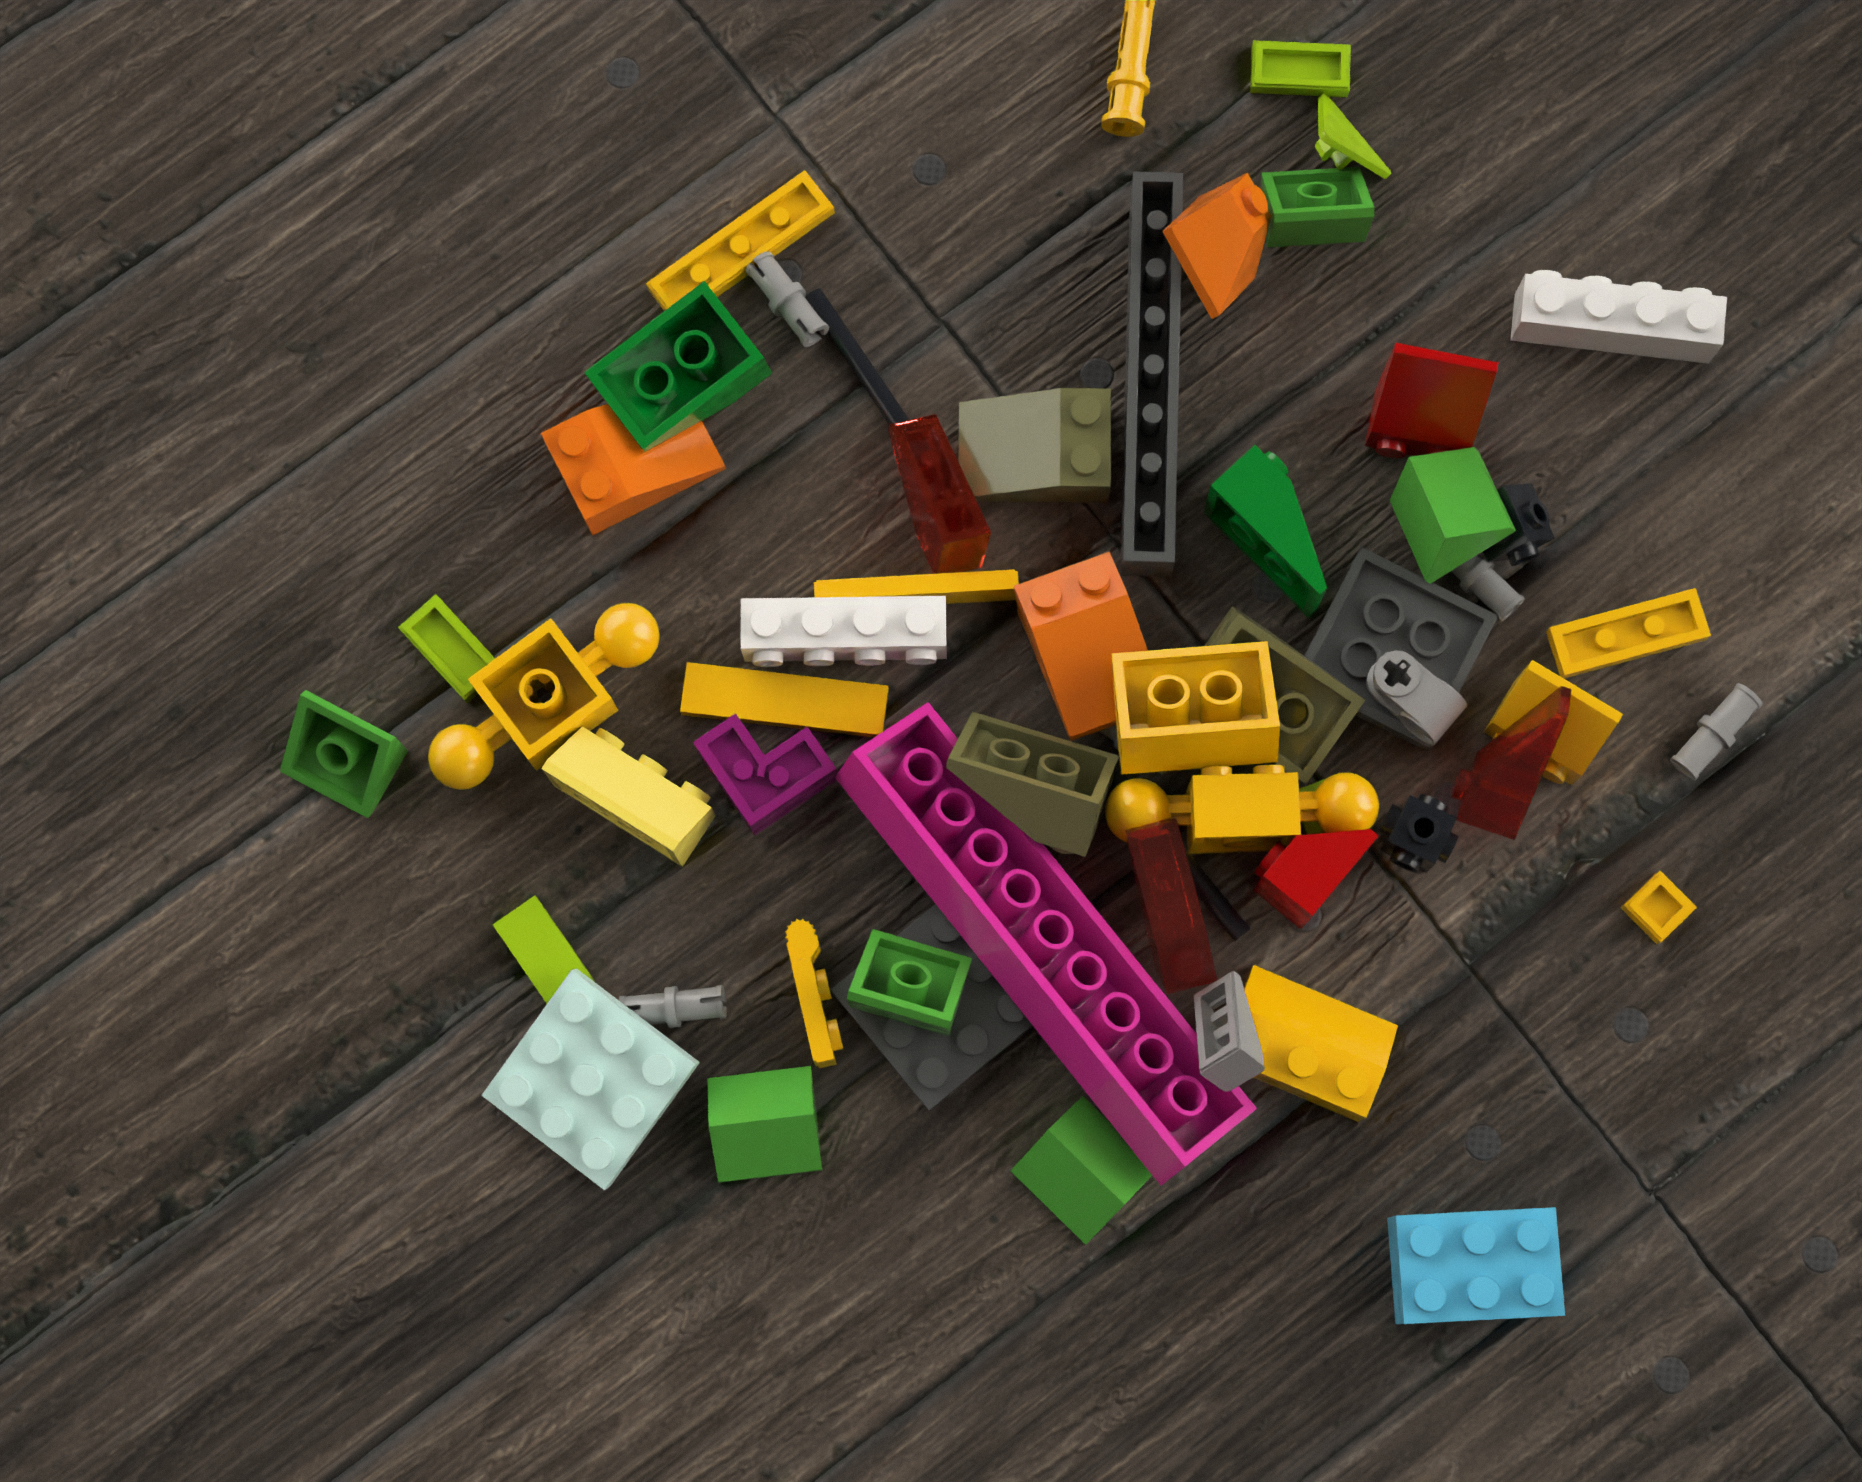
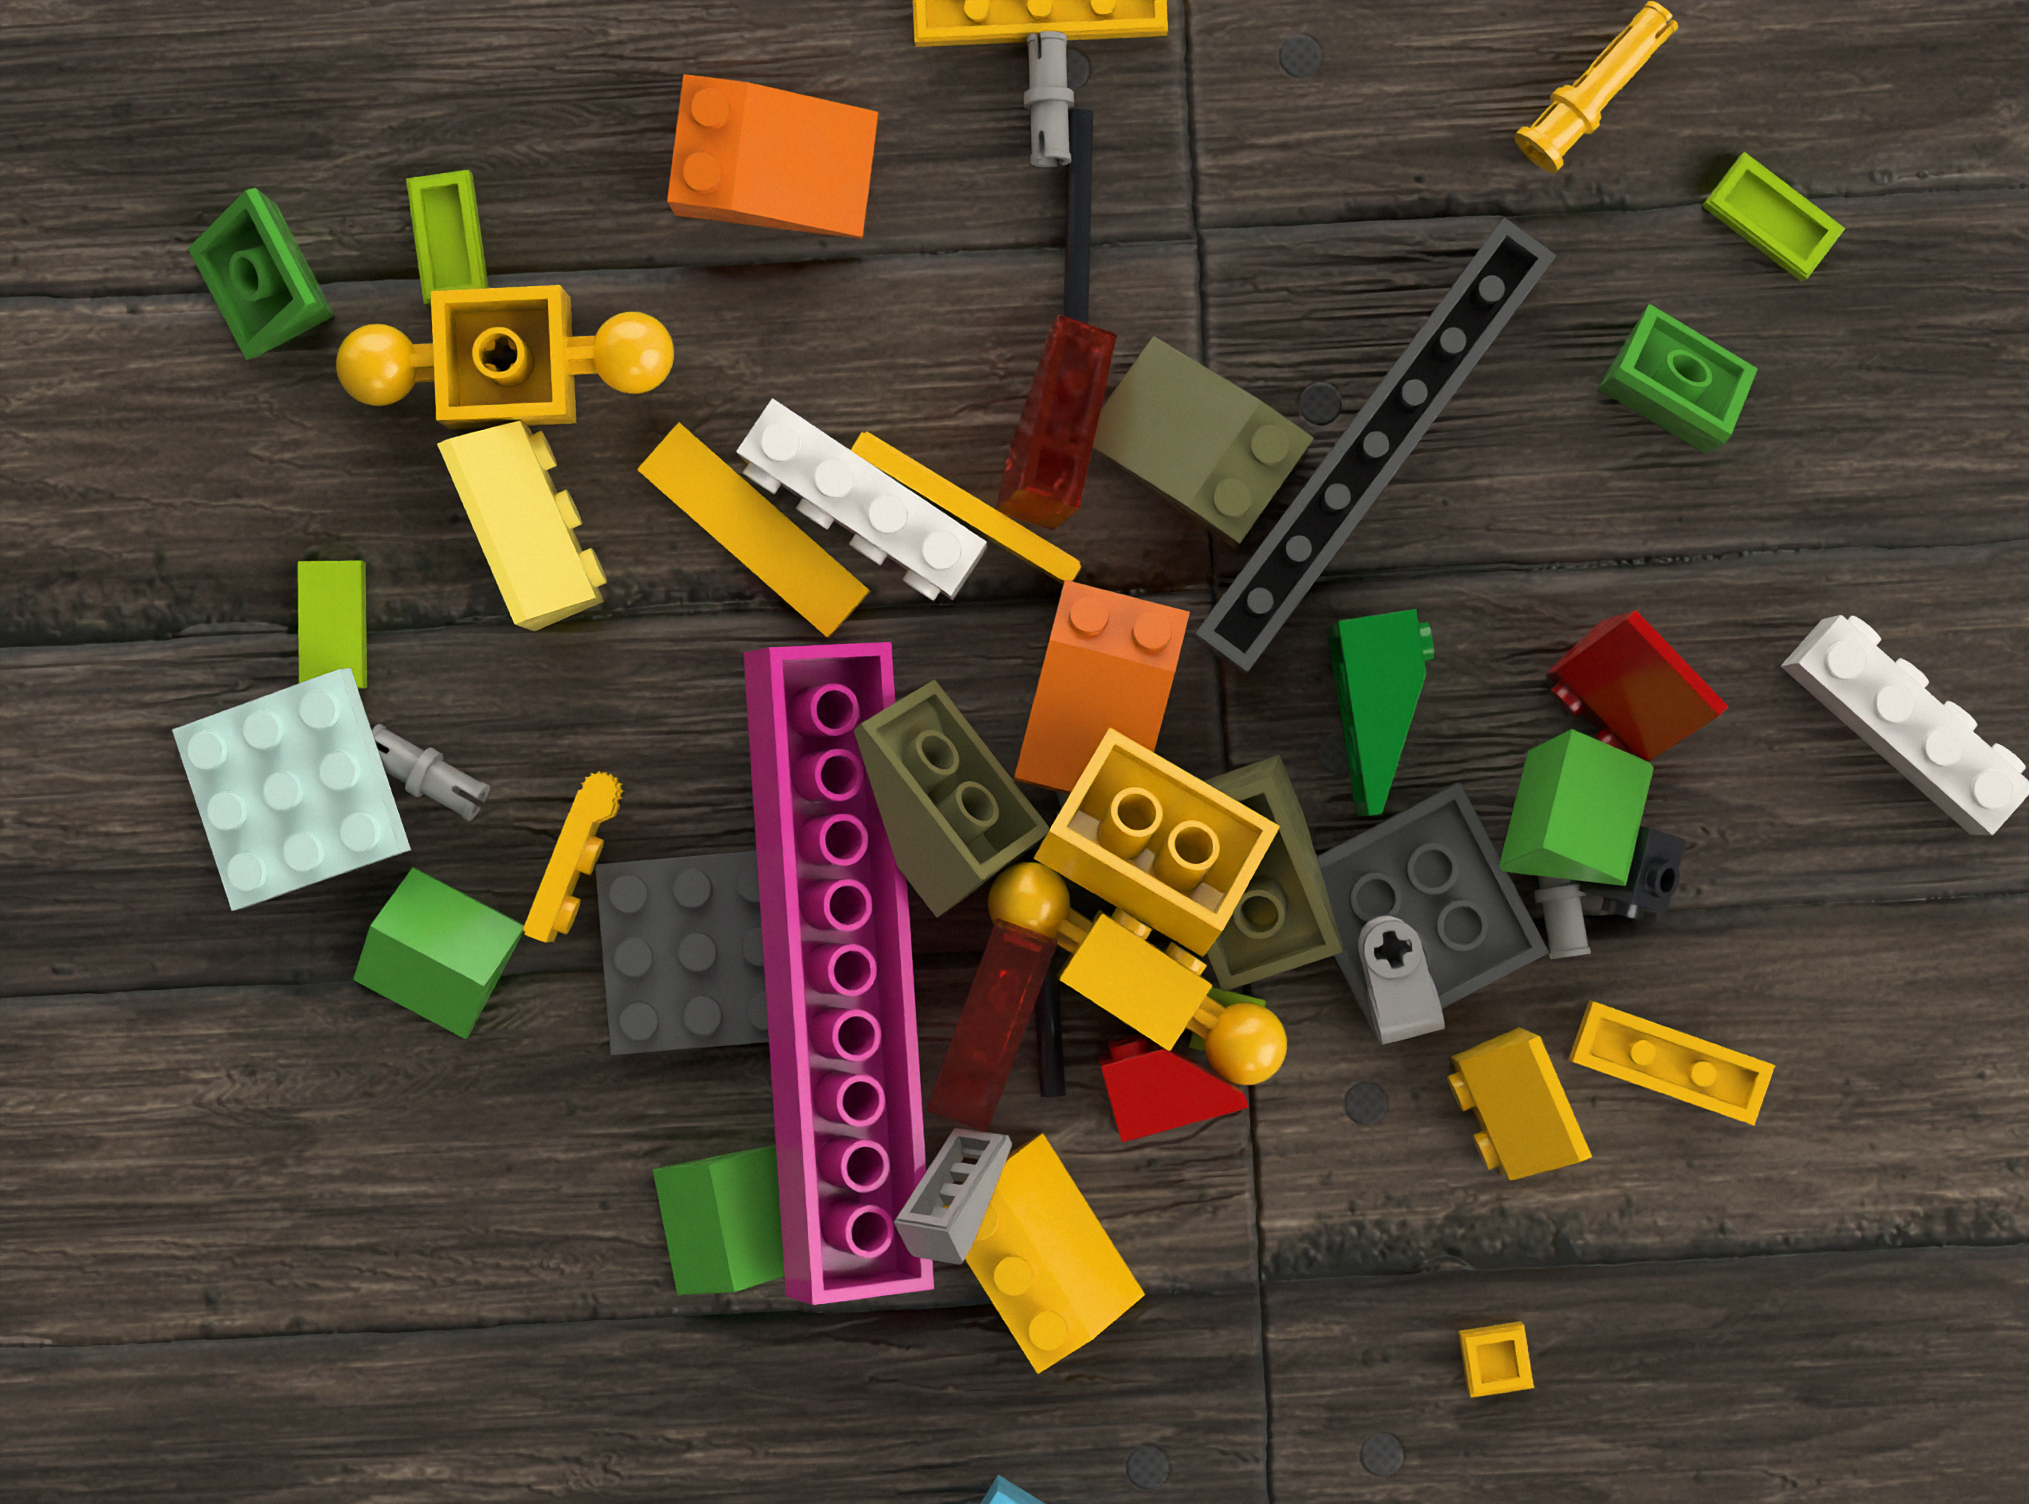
camera: 40 degrees right, 10 degrees up
(679, 369) = (877, 101): green slope -> none
(768, 784) = (664, 609): magenta panel -> none
(909, 982) = (673, 918): bright green slope -> none
(1221, 241) = (1543, 357): orange slope -> none
(1343, 141) = (1759, 329): lime piece -> none
(1409, 849) = (1287, 1101): black brick -> none
(1509, 769) = (1441, 1124): clear red slope -> none
(1716, 731) = (1686, 1225): light grey pin -> none

